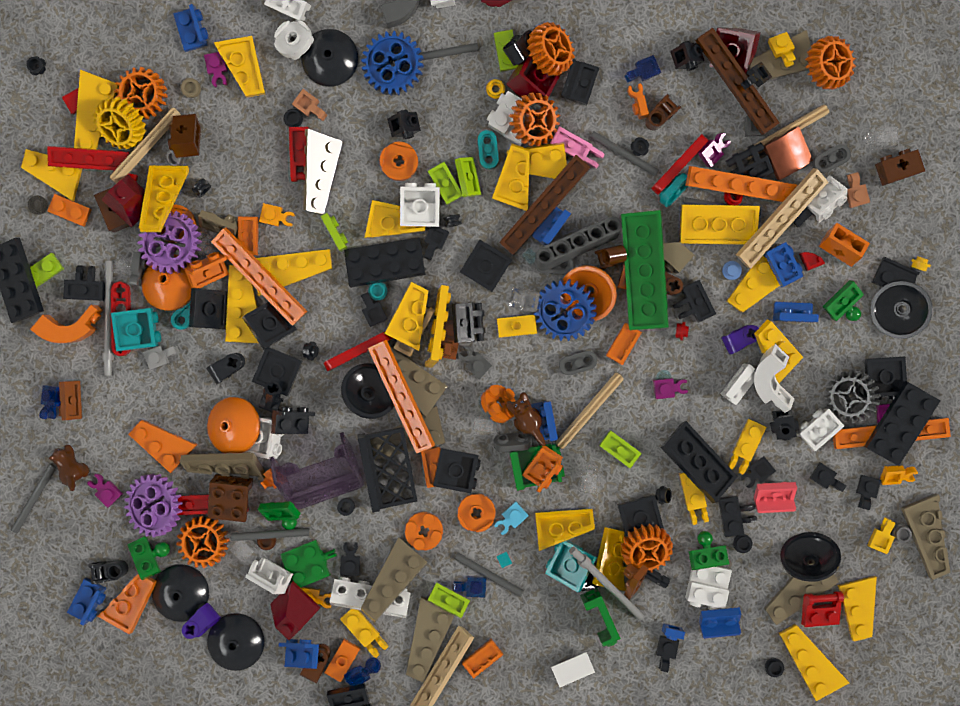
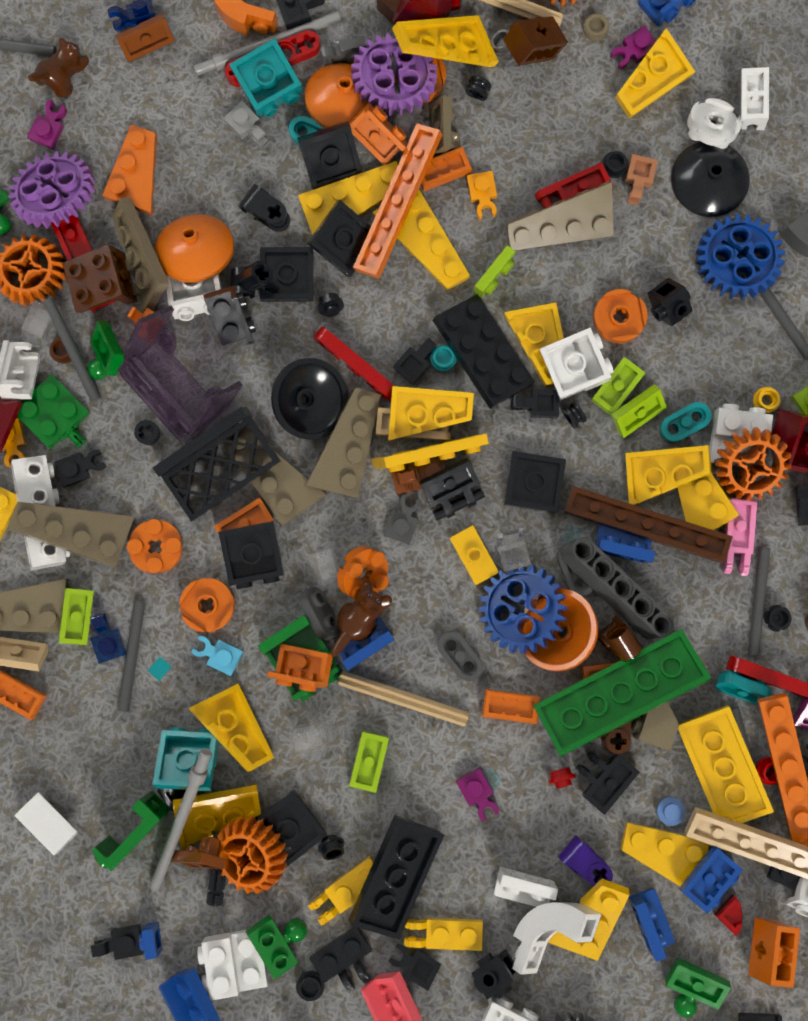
camera: 65 degrees right, 5 degrees down
(401, 396) = (319, 442): orange plate -> none

